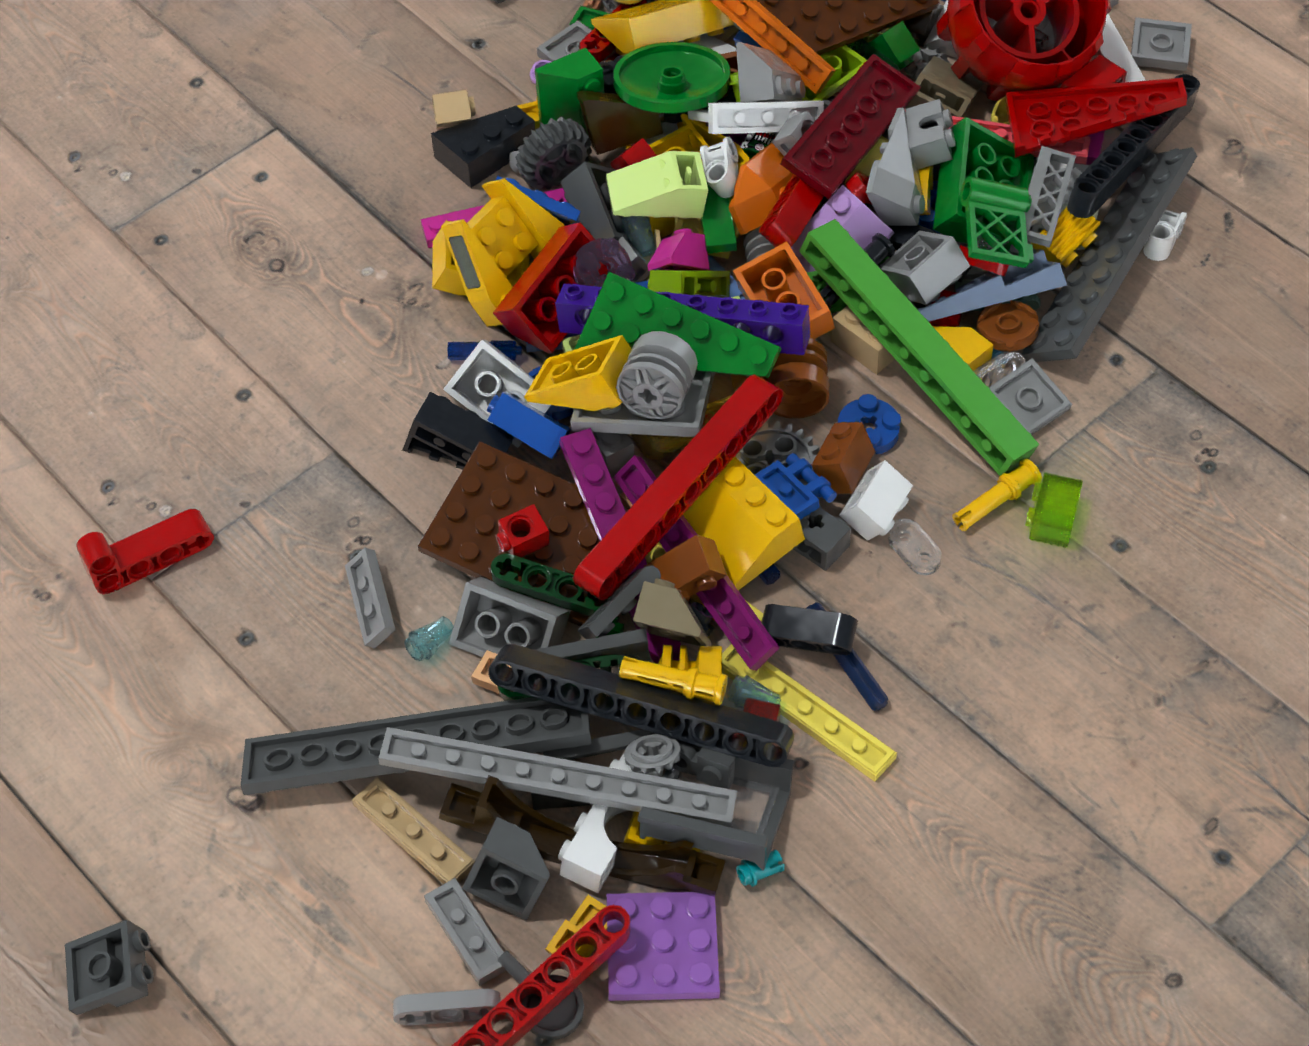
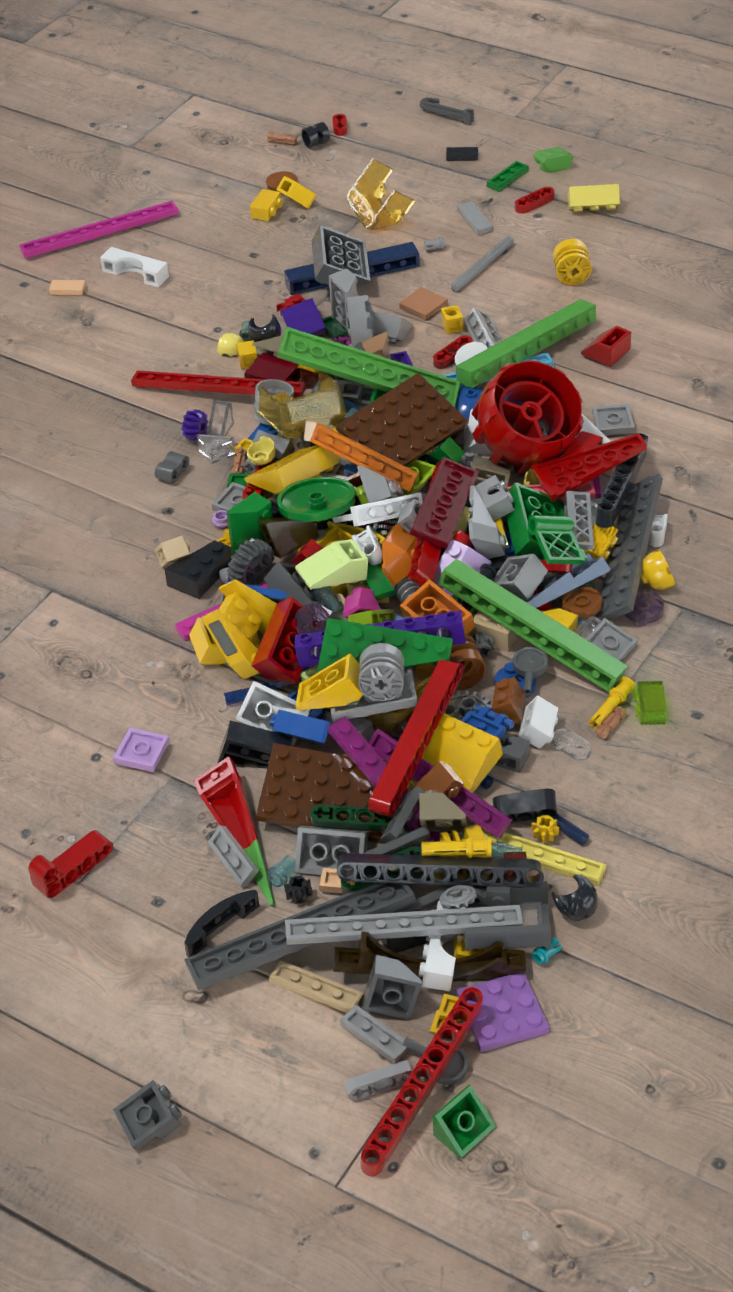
camera: 15 degrees left, 10 degrees down
(305, 400) = (141, 749): none -> lavender plate
(310, 686) = (239, 904): none -> black slope
(391, 506) = (226, 799): none -> red plate
(440, 674) = (298, 889): none -> black gear
(527, 520) = (327, 782): red brick -> none
(826, 672) = (545, 829): none -> yellow gear
(830, 806) = (579, 904): none -> black piece
(841, 356) = (484, 643): none -> dark grey gear
(895, 404) = (529, 663): none -> dark grey piece
(986, 526) = (611, 722): none -> nougat axle
(1105, 367) = (652, 613): none -> clear purple plate
(1137, 302) = (656, 571): none -> yellow cylinder

